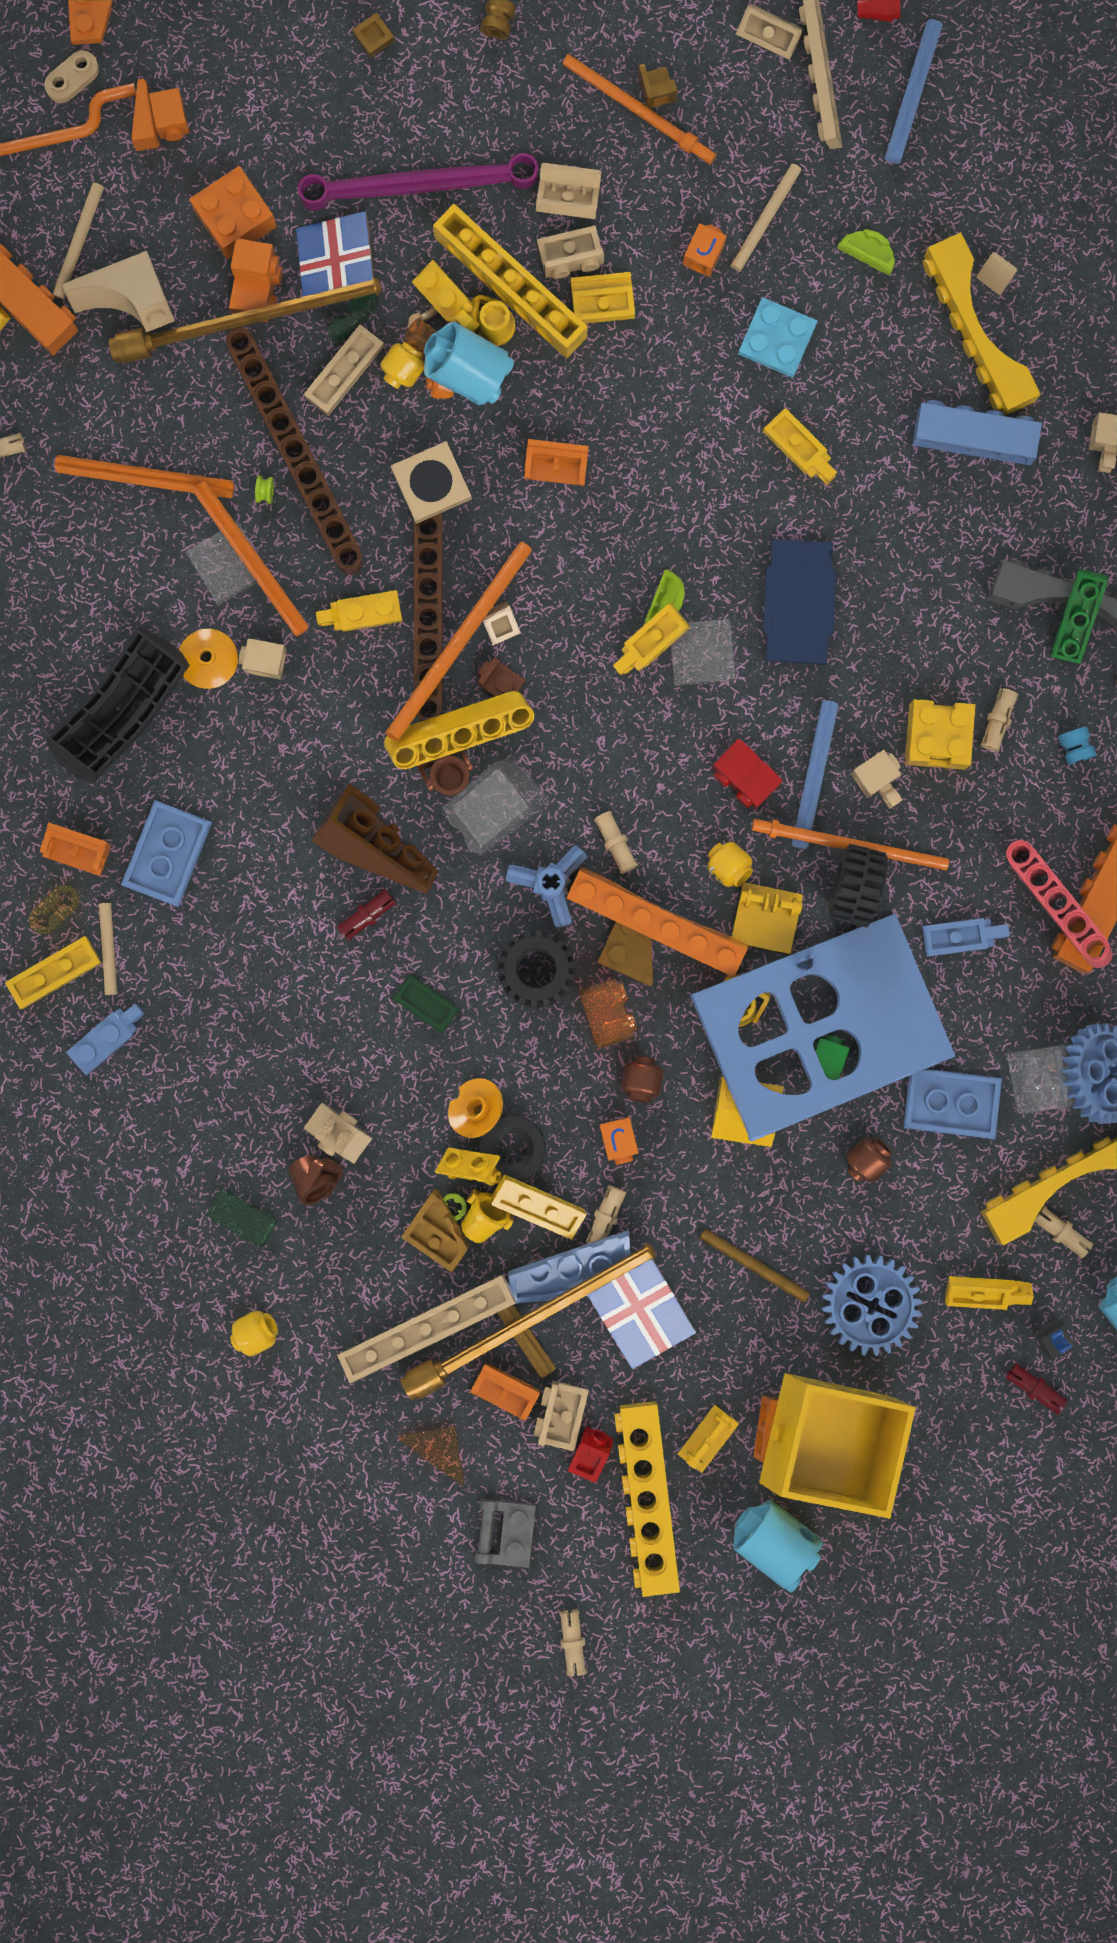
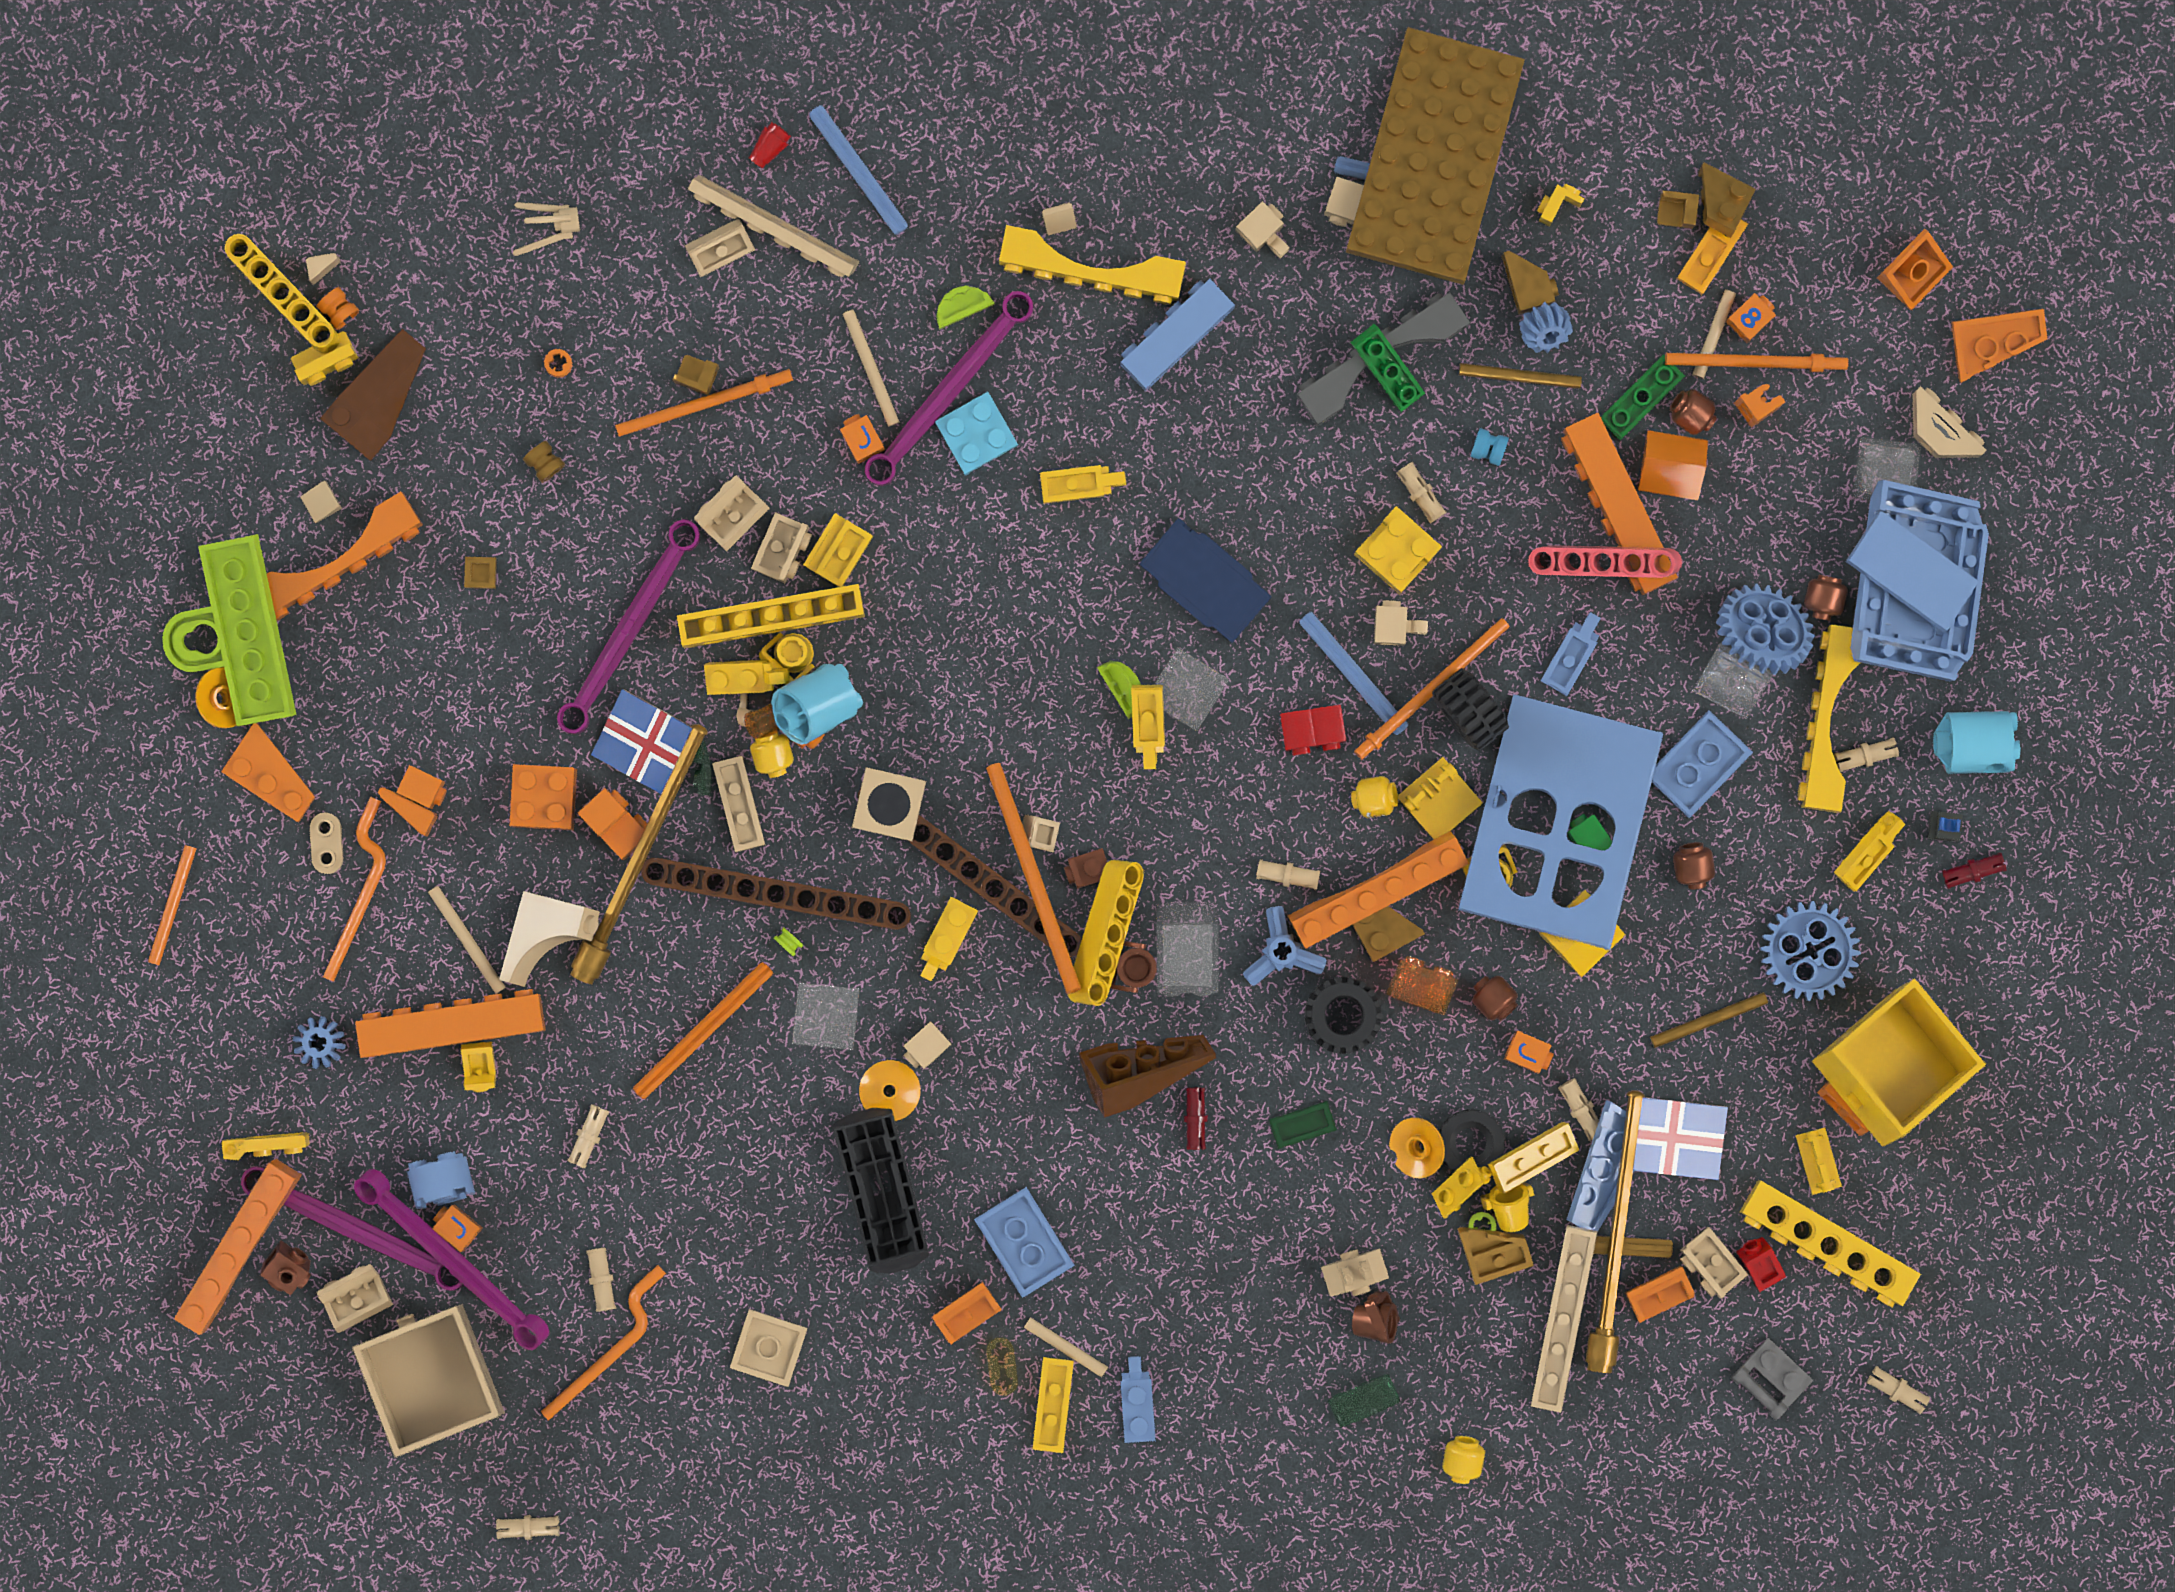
camera: 50 degrees left, 0 degrees up
(250, 558) = (839, 995): orange axle -> none
(439, 1449) = (1666, 1381): clear orange tile -> none
(556, 462) = (944, 690): orange hinge -> none
(776, 1544) = (1940, 1169): medium azure cylinder -> none
(796, 289) = (949, 388): none -> magenta piece

